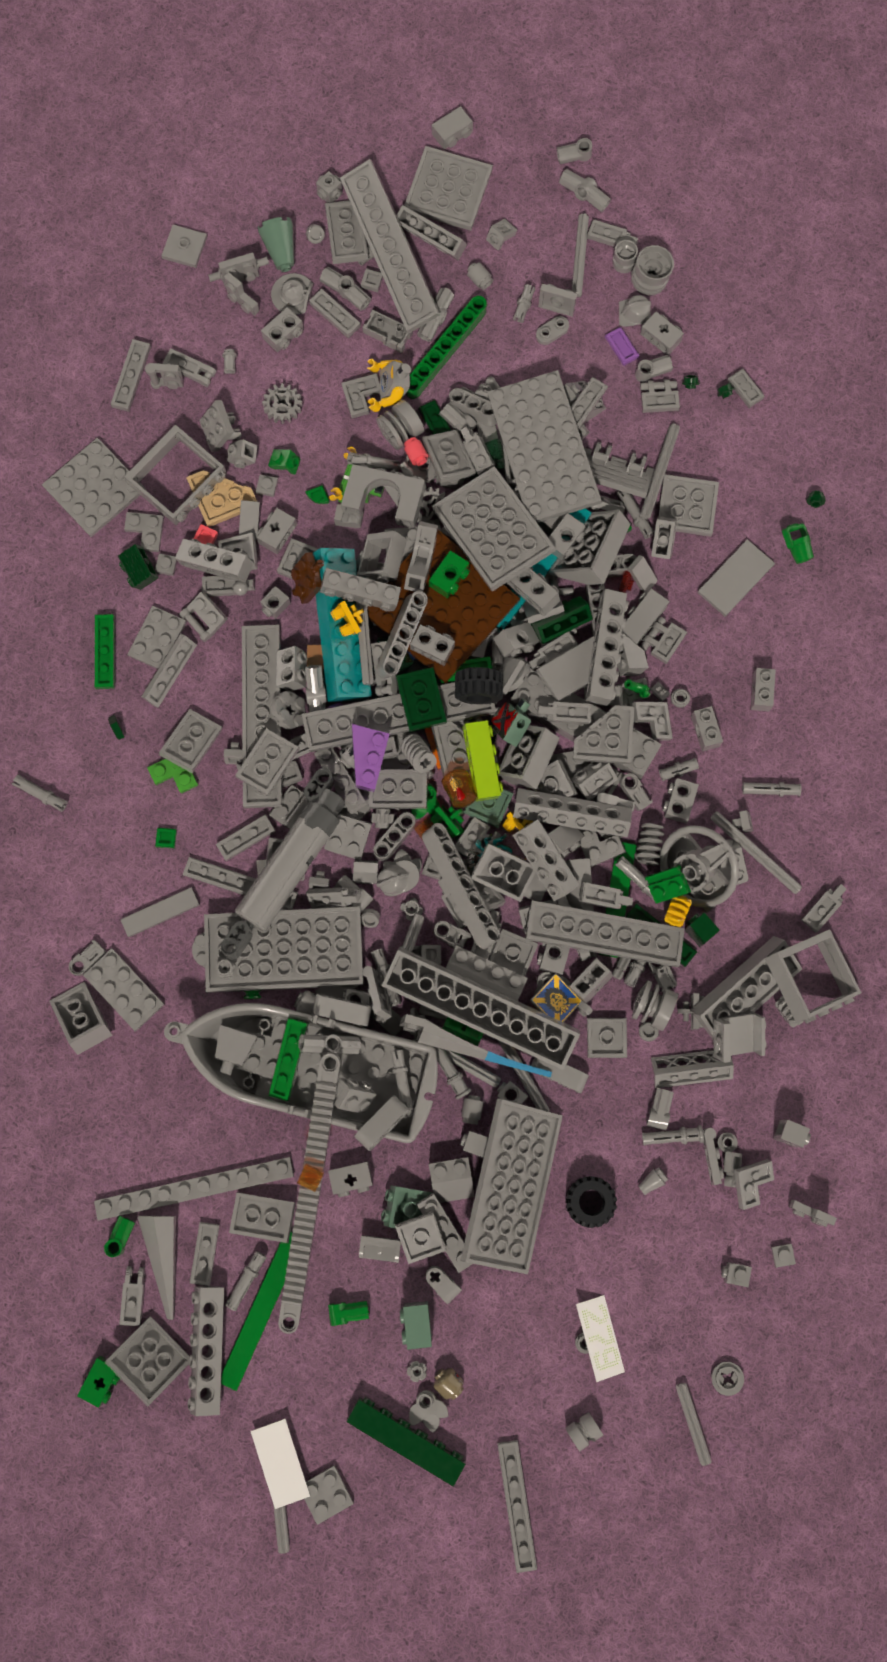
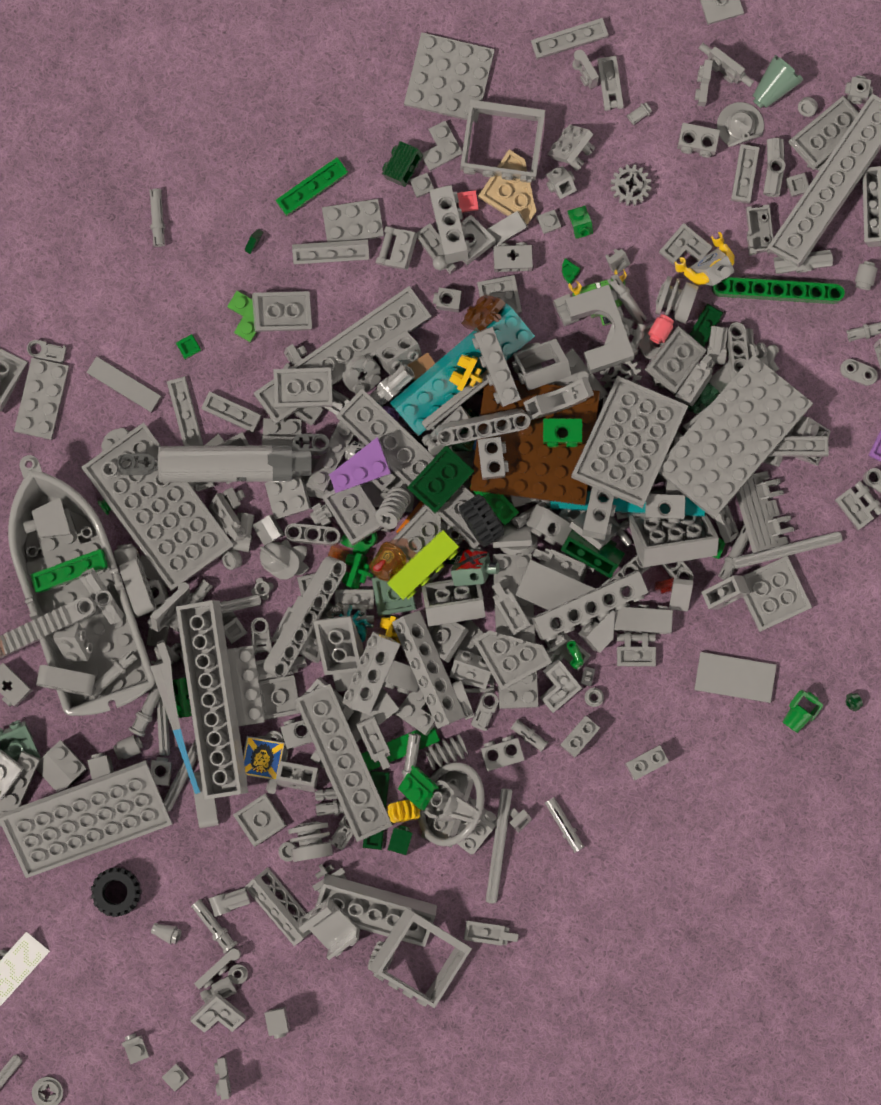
camera: 55 degrees right, 5 degrees up
(336, 452) = (618, 260): none -> light grey tile

